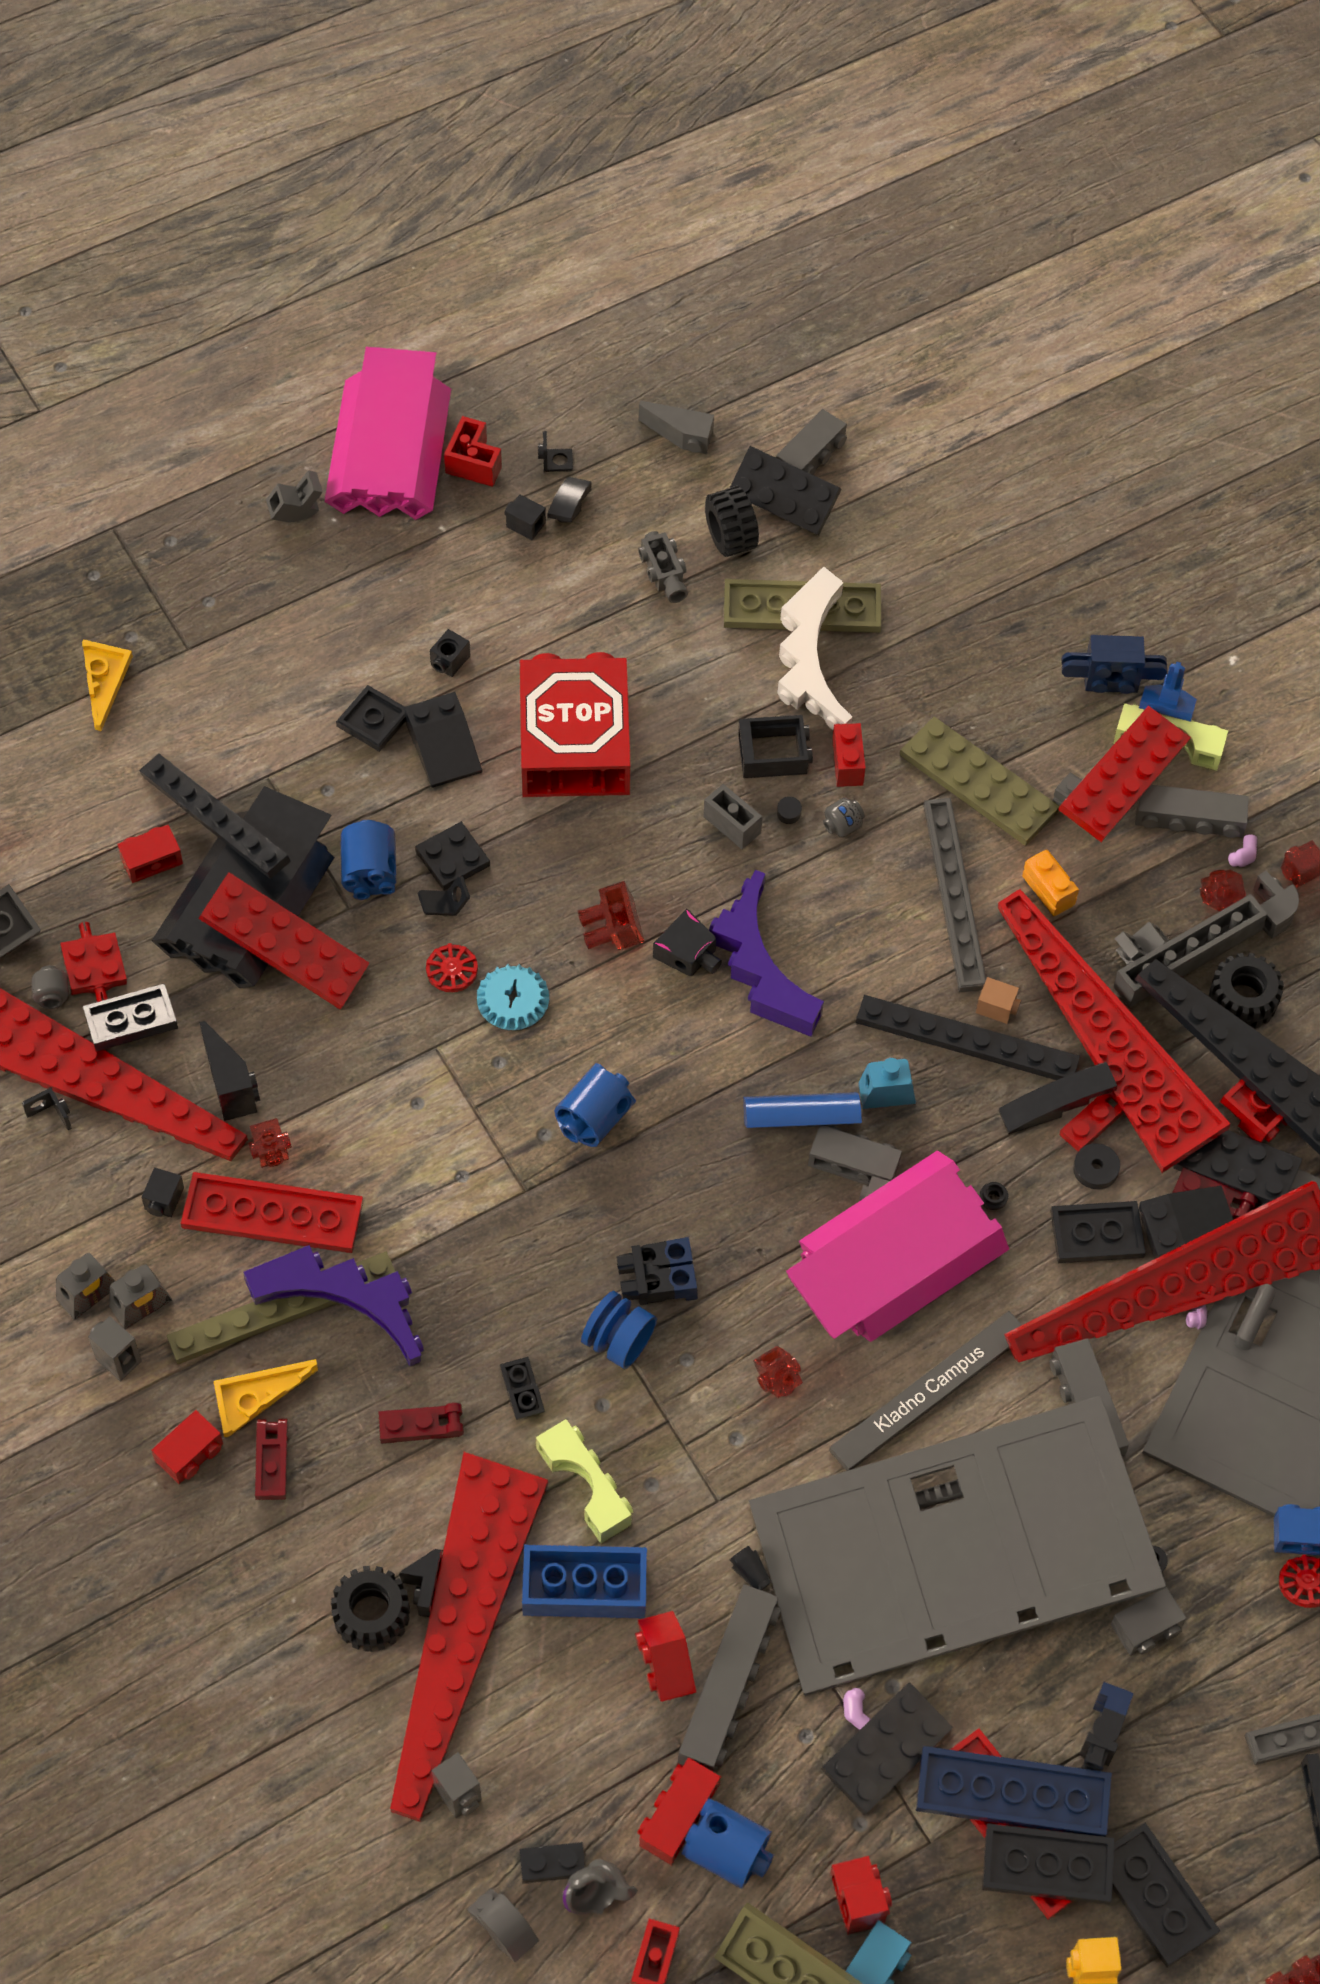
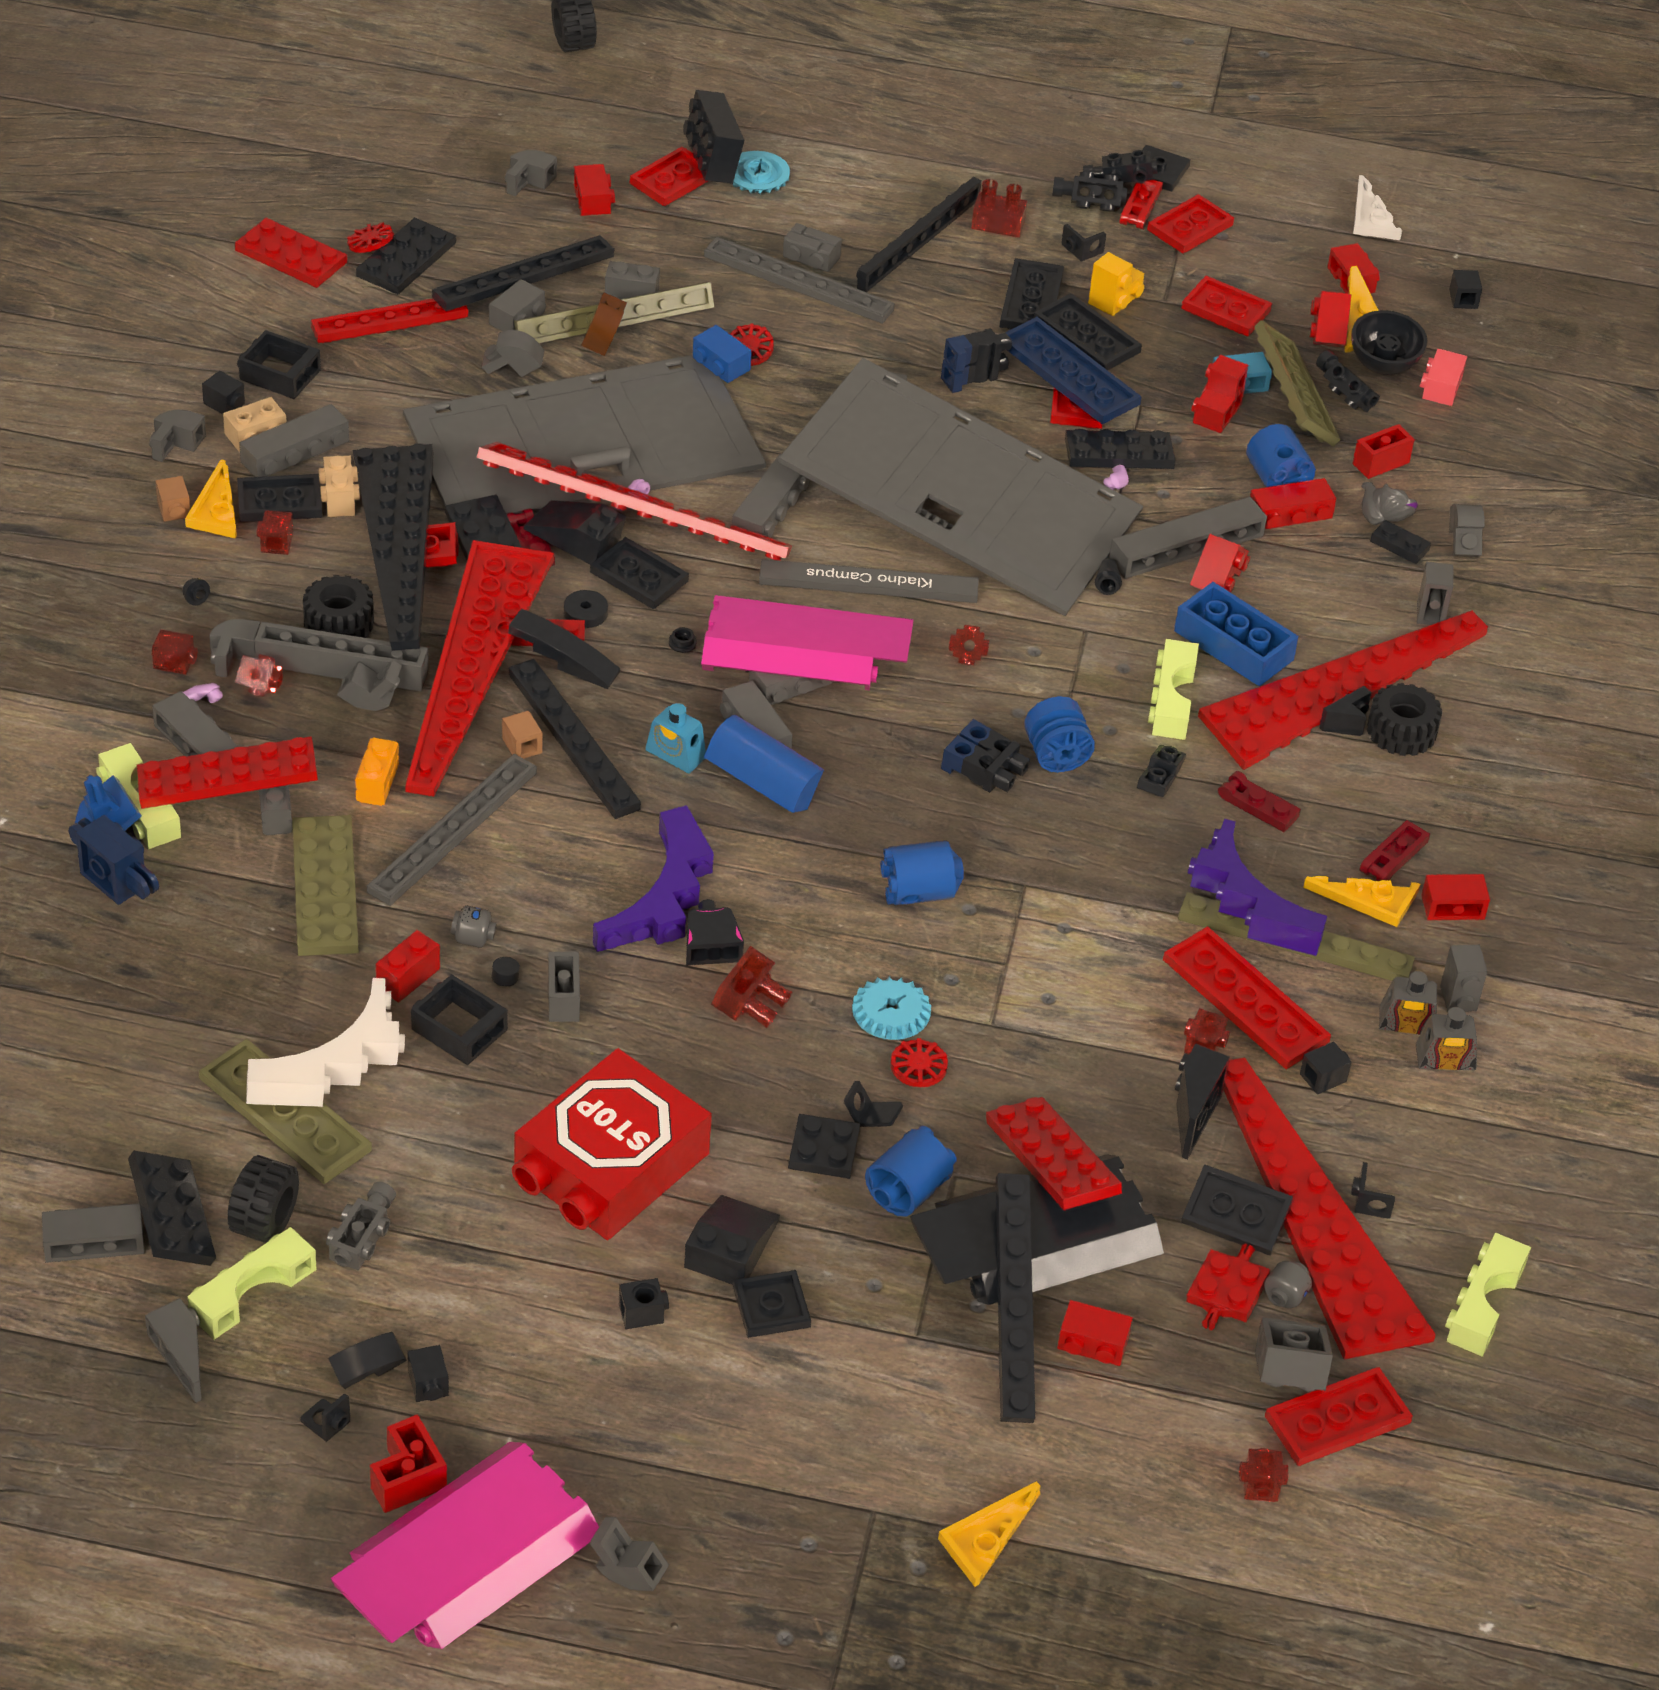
camera: 140 degrees left, 15 degrees down
(685, 513) = (281, 1260): none -> yellowish green arch

